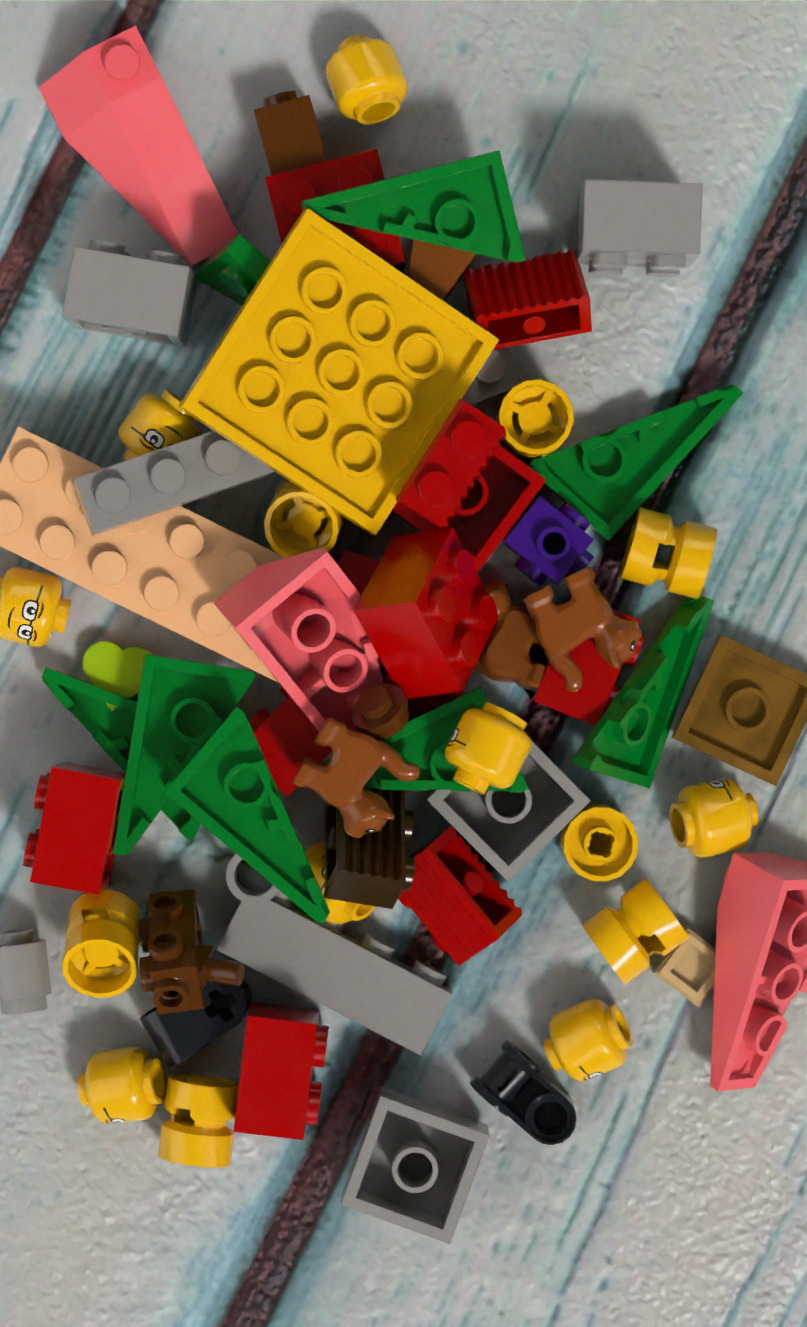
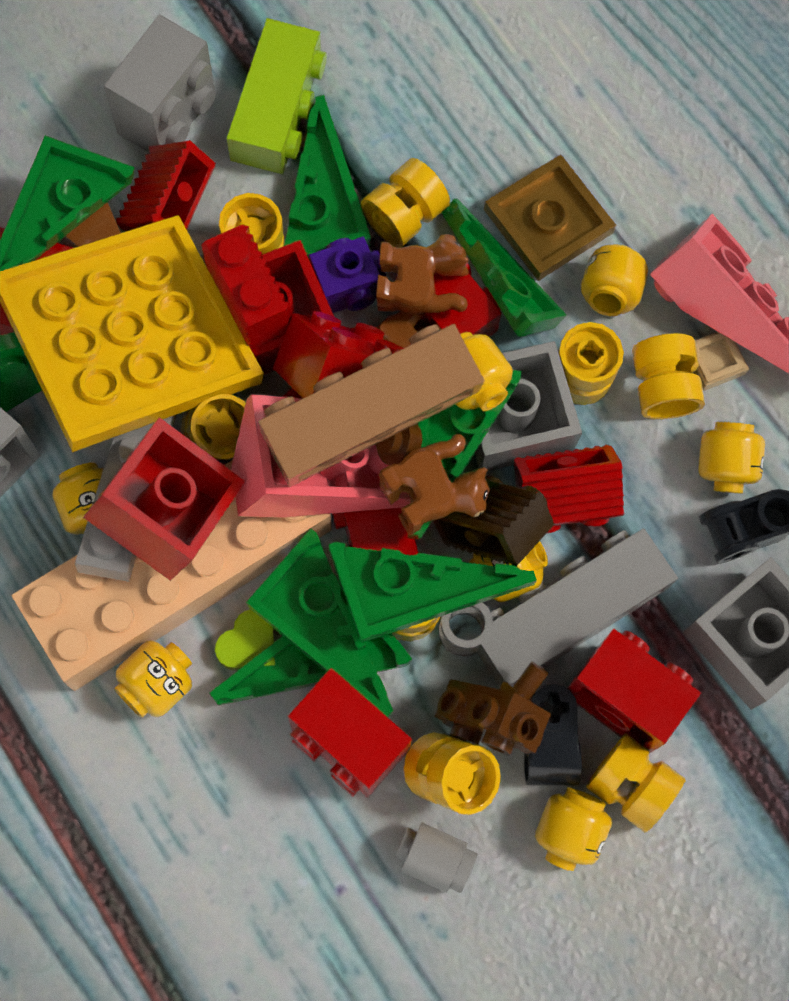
camera: 70 degrees left, 15 degrees down
(179, 530) = (165, 499): none -> red brick
(374, 677) = (370, 404): none -> medium nougat brick
(713, 344) = (276, 96): none -> lime brick

